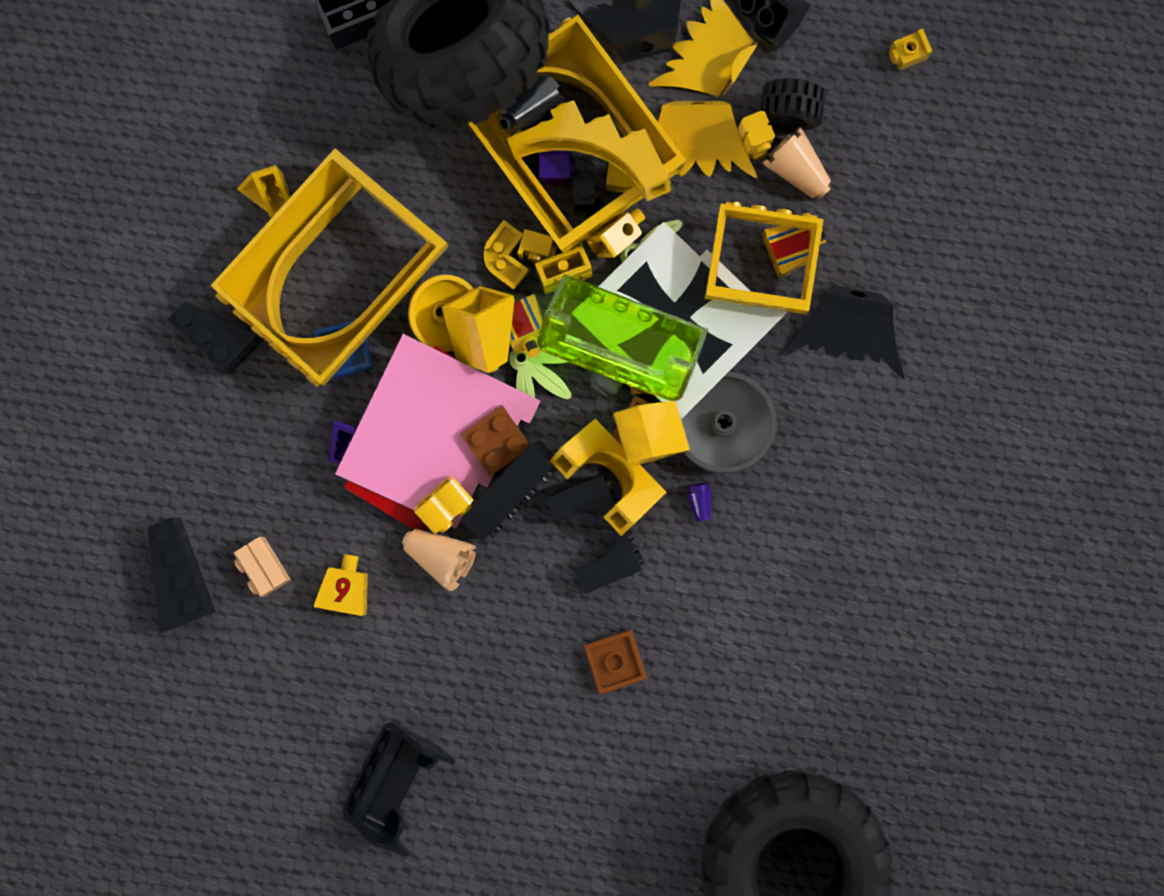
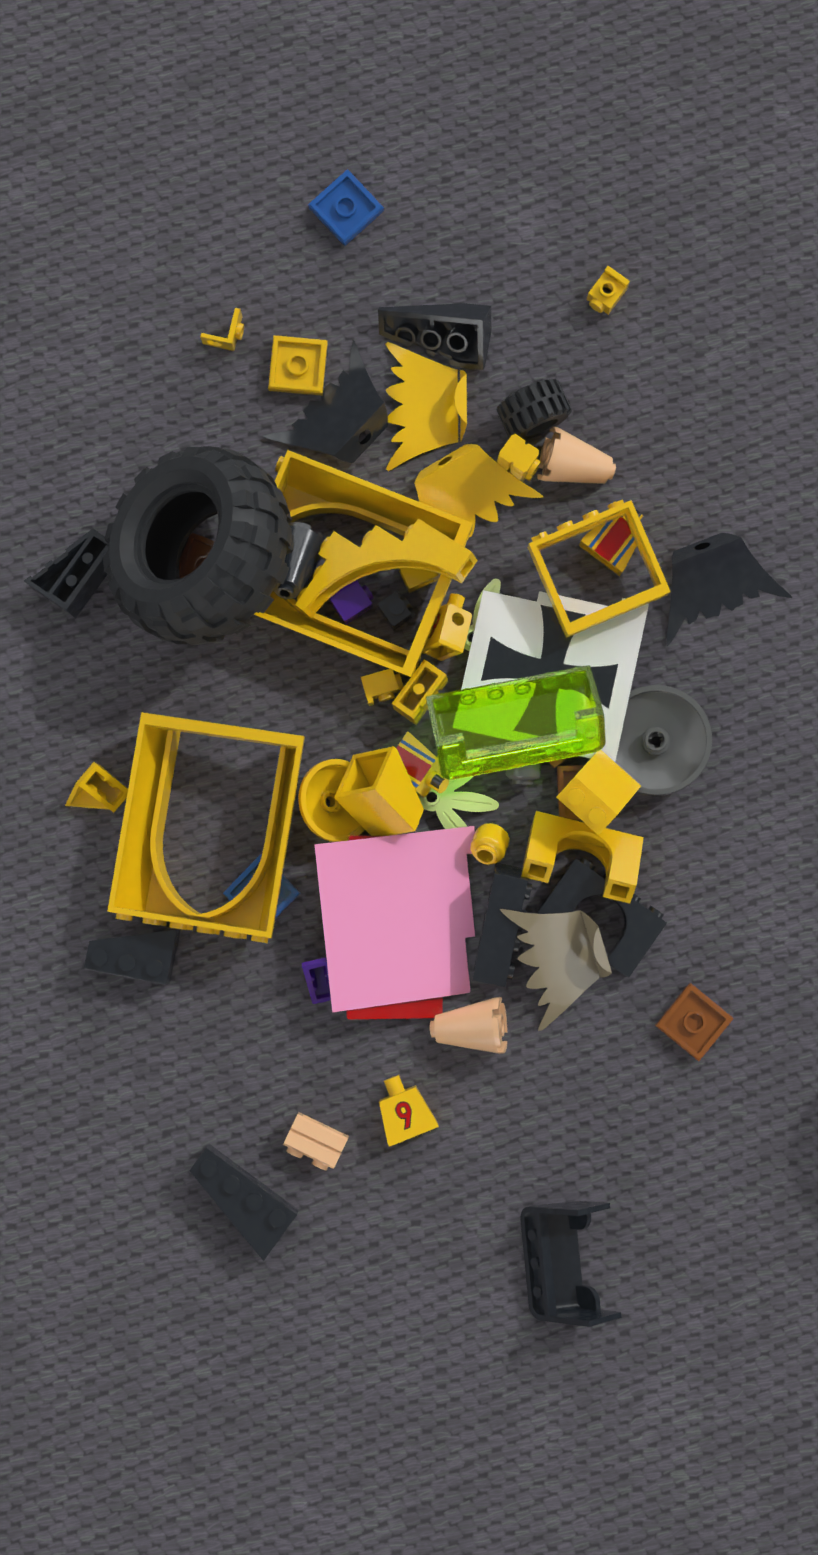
camera: 35 degrees left, 0 degrees up
(443, 505) = (448, 977): yellow brick -> none
(495, 440) = (456, 888): dark orange plate -> none
(498, 257) = (350, 717): yellow plate -> none
(543, 421) = (489, 843): none -> yellow head
(546, 547) = (567, 954): none -> dark tan piece
(700, 501) = (678, 825): dark purple cone -> none

